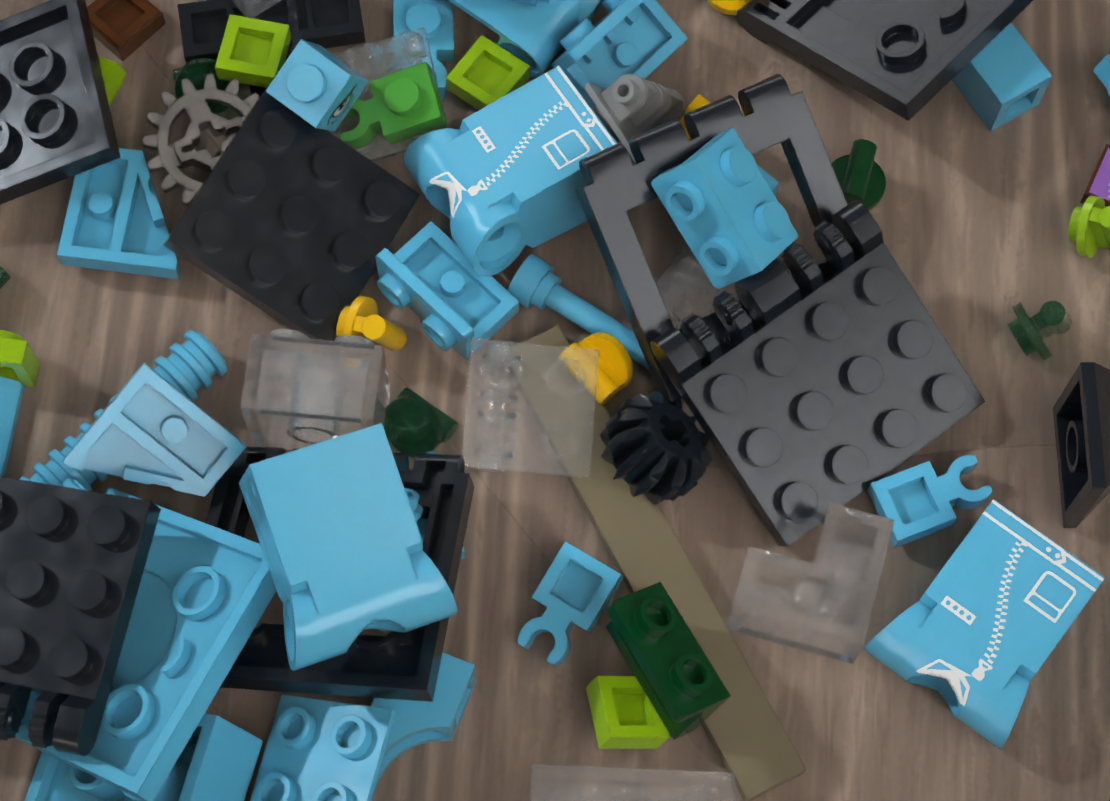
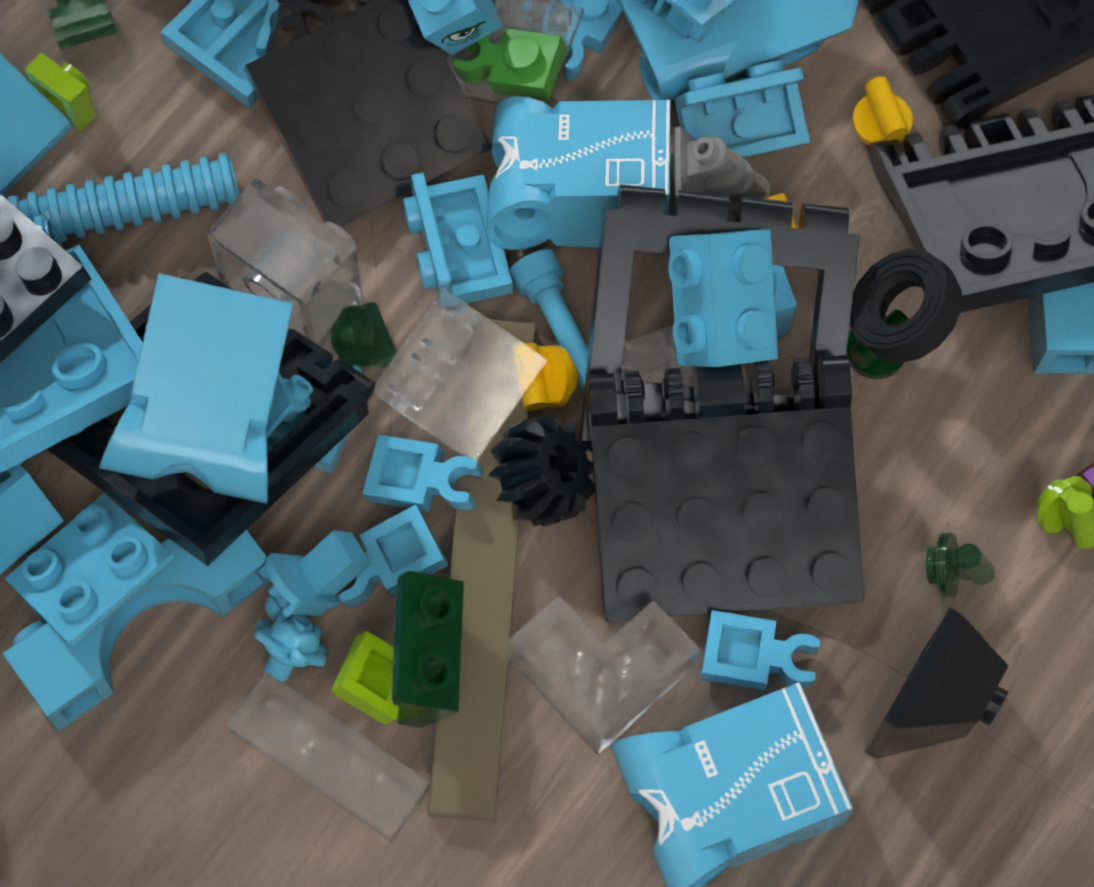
camera: 30 degrees right, 0 degrees up
(157, 438) = (135, 222): medium azure wing -> none
(363, 321) = (371, 231): yellow plate -> none
(486, 74) = (614, 76): lime plate -> none
(517, 662) = (311, 581): none -> medium azure piece
(535, 727) = (291, 644): none -> medium azure plant
(540, 518) = (412, 472): none -> medium azure plate
(906, 138) = (927, 326): none -> black tyre

